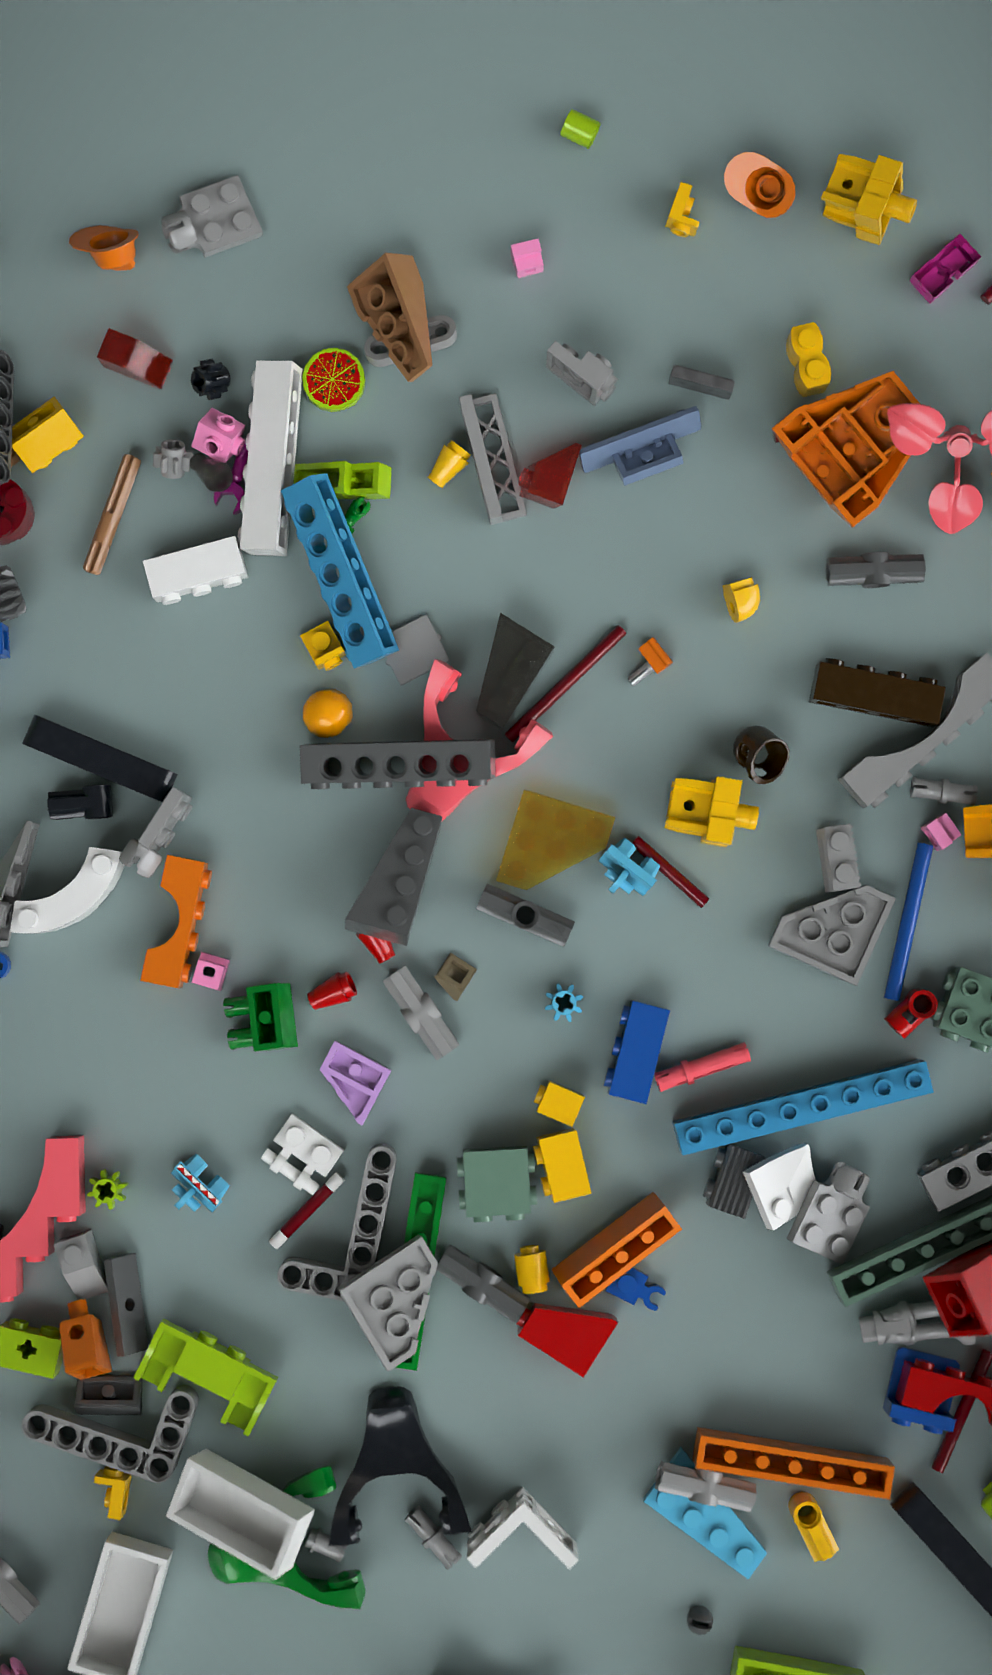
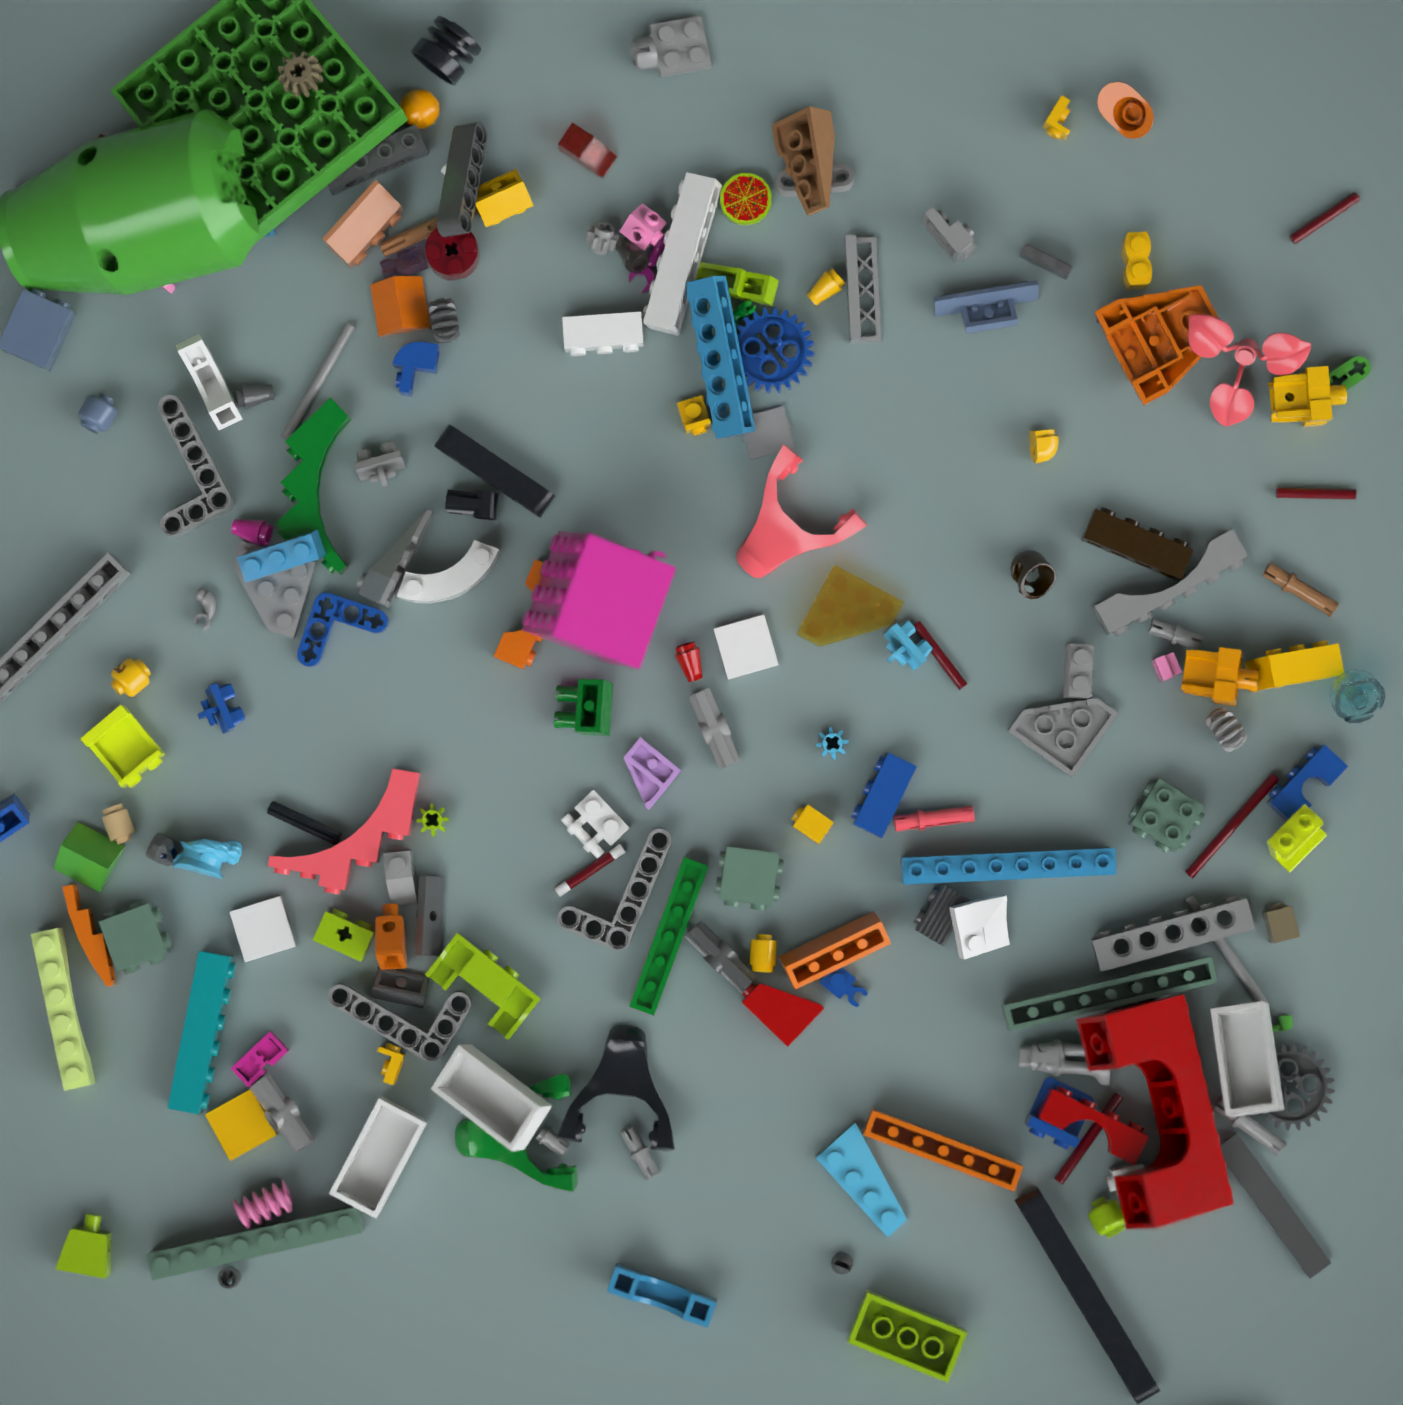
camera: 10 degrees right, 0 degrees up
(107, 245) = (583, 52): orange piece -> none
(111, 514) = (542, 273): medium nougat axle -> none
(157, 834) = (530, 542): light grey plate -> none
(187, 1174) = (503, 835): medium azure hips -> none
(210, 379) = (645, 179): black gear -> none
(221, 966) = (546, 668): bright pink piece -> none
(249, 888) = (599, 598): none -> dark pink piece
(316, 758) = (671, 504): dark grey brick -> none
(327, 713) = (686, 470): light orange hair -> none
(334, 991) = (646, 697): red cone -> none
(393, 1300) = (646, 953): light grey plate -> none
(396, 885) = (713, 624): dark grey wedge -> none
(417, 529) = (790, 335): none -> blue gear
(443, 909) = (746, 647): none -> white tile
(455, 976) = (747, 705): dark tan slope -> none
(508, 1517) = (703, 1145): white bracket -> none
(511, 671) = (843, 466): clear smoke wedge -> none
(527, 258) = (923, 131): bright pink piece -> none
(545, 923) = (800, 656): dark grey piece -> none
(550, 477) = (906, 314): clear red slope -> none
(562, 1165) = (805, 874): yellow brick -> none
(567, 681) = (886, 484): dark red piece -> none
(580, 128) = (988, 33): lime beam -> none
(656, 660) = (963, 480): orange piece -> none
(705, 1486) = (868, 1154): light grey piece -> none
(713, 810) = (984, 611): yellow piece -> none
(813, 1527) = (948, 1207): yellow piece -> none
(832, 1213) = (1015, 957): light grey plate -> none
(867, 196) = (1211, 137): yellow piece -> none
(875, 570) = (1156, 443): dark grey piece -> none
(900, 1024) = (1101, 815): red piece -> none
(908, 921) = (1125, 734): blue piece -> none
(937, 273) = (1259, 208): dark pink piece -> none

